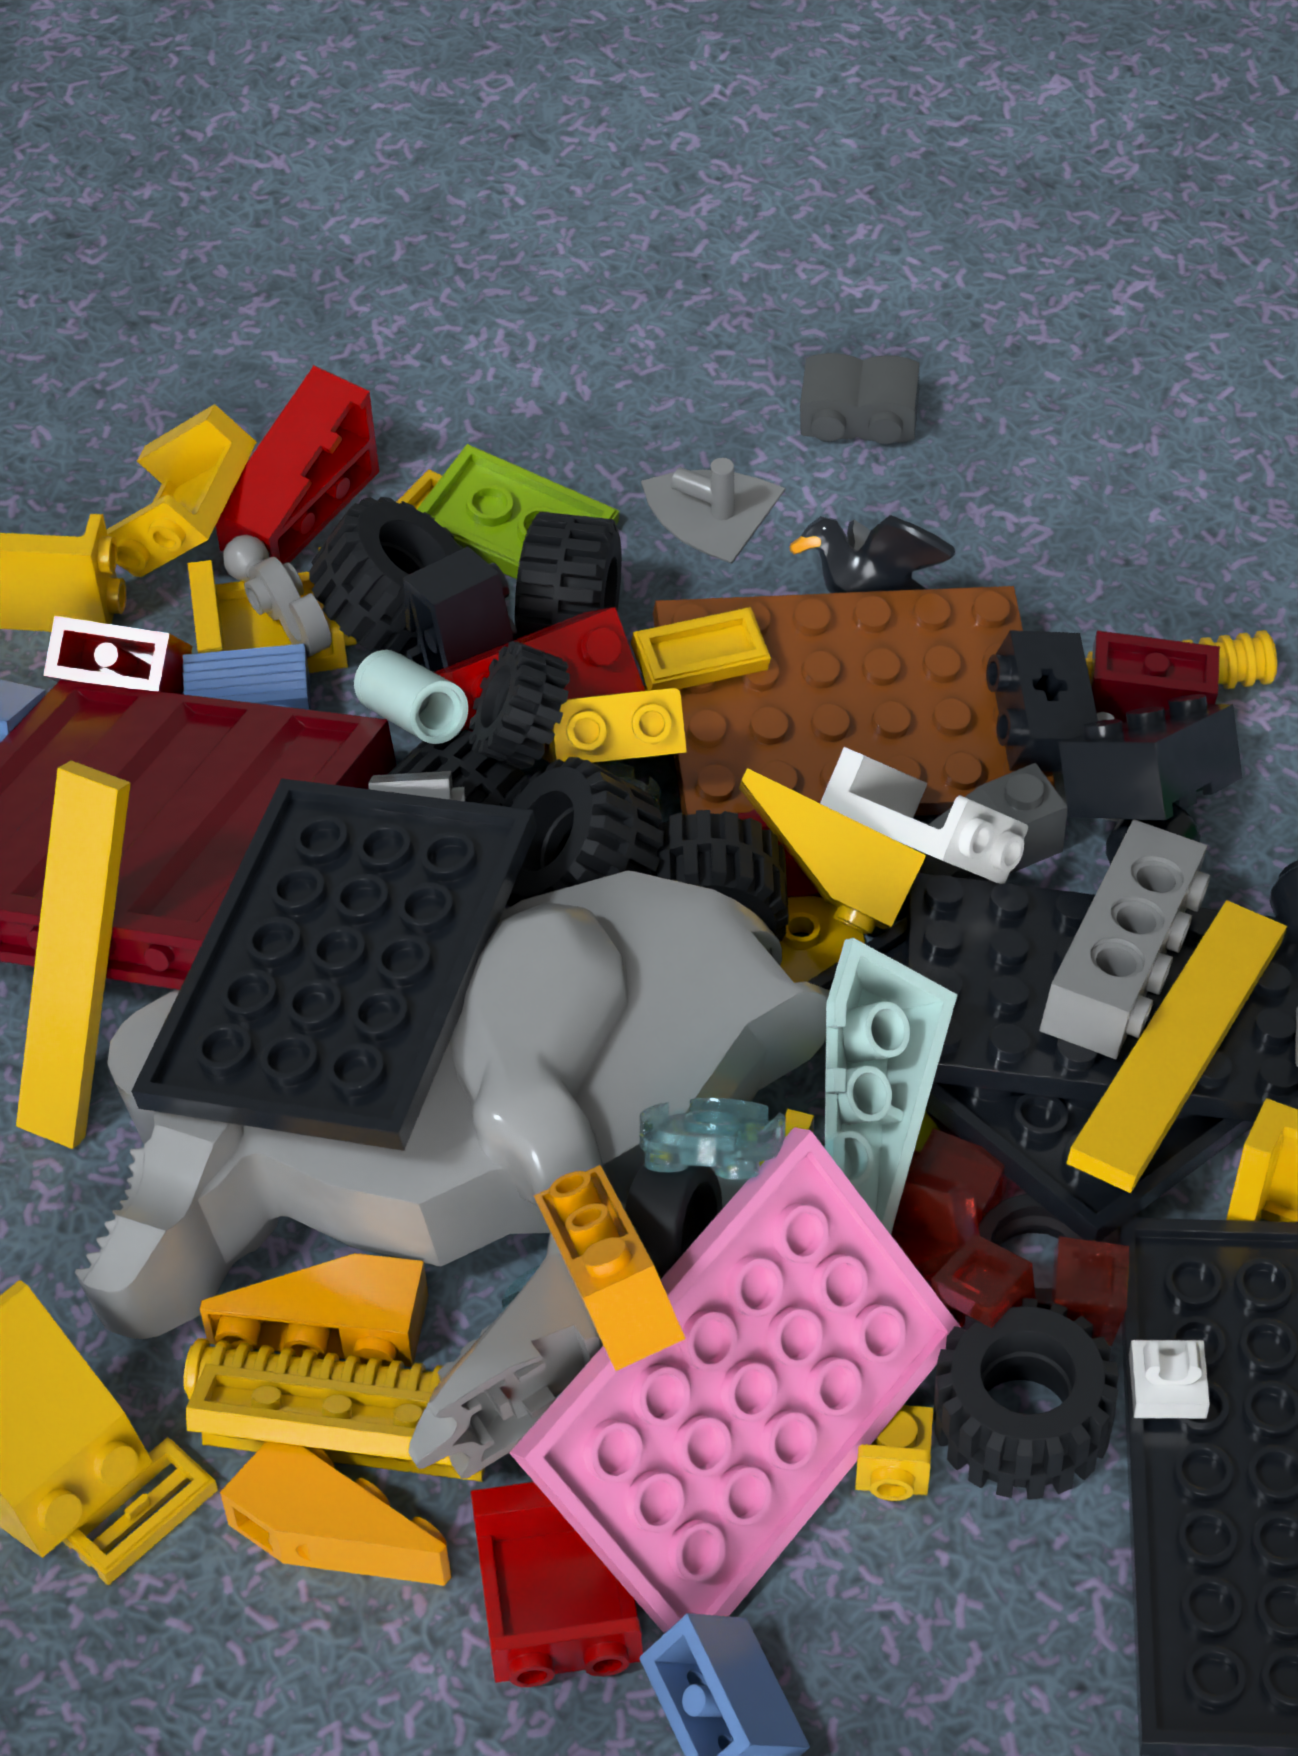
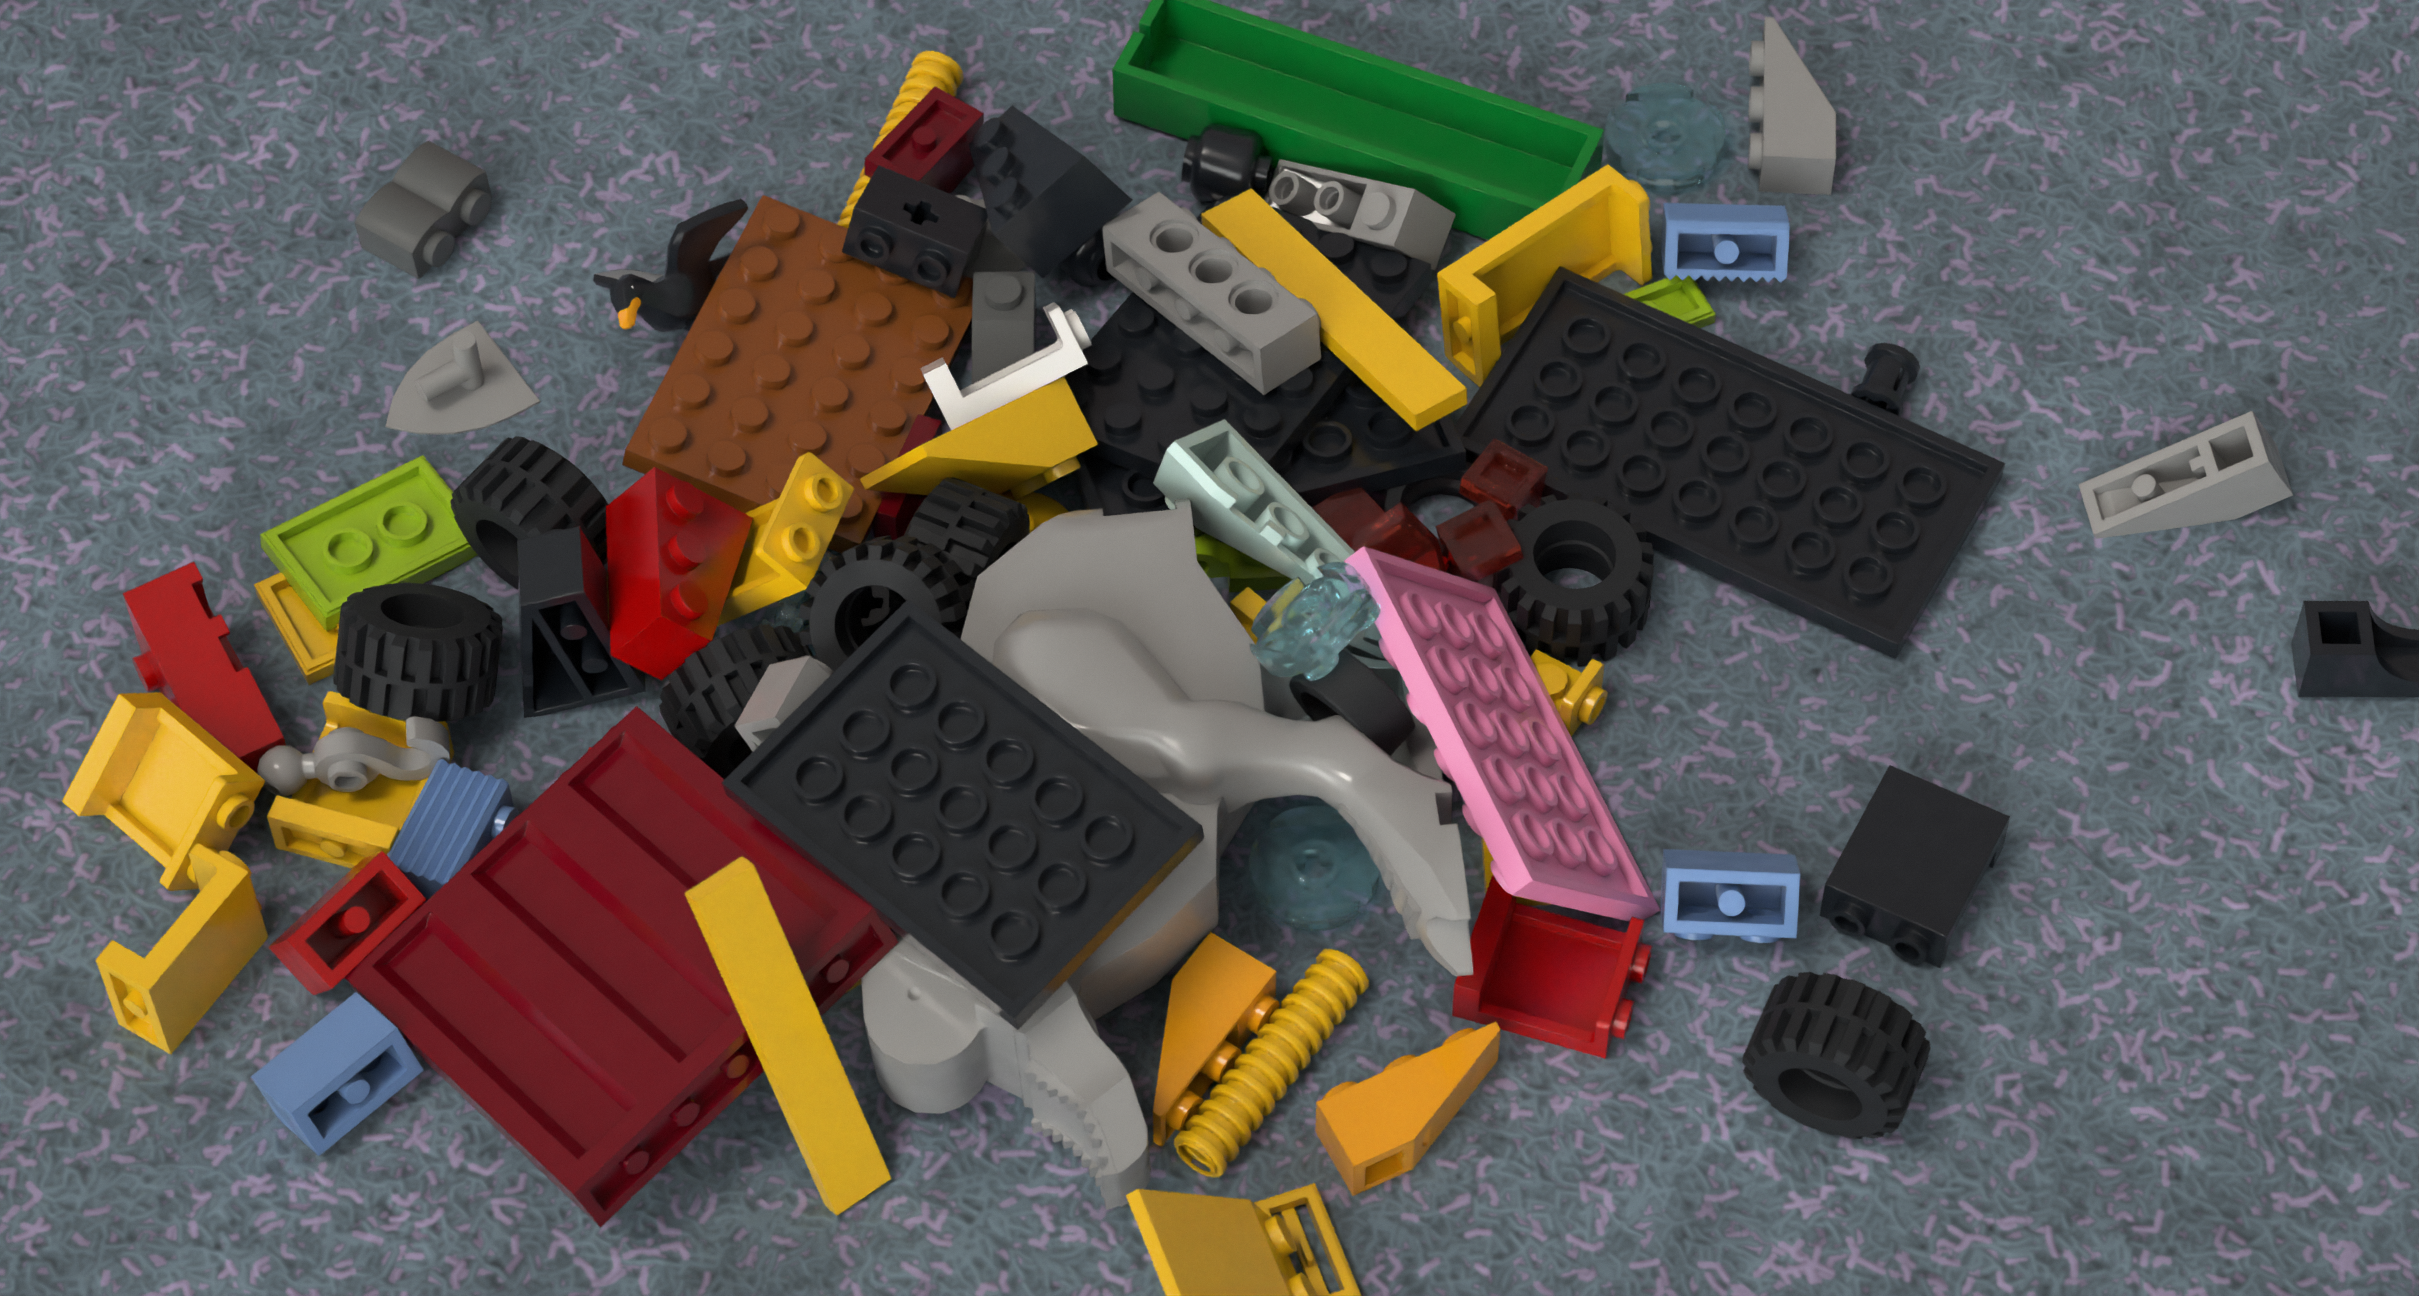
camera: 65 degrees left, 5 degrees up
(342, 1418) = (1327, 1056): yellow fence -> none
(411, 696) = (642, 668): light aqua pin -> none
(519, 705) = (722, 595): black tyre -> none
(609, 1267) = (1410, 734): light orange slope -> none
(701, 650) = (714, 438): yellow tile -> none
(1168, 1379) = (1616, 472): white tile -> none

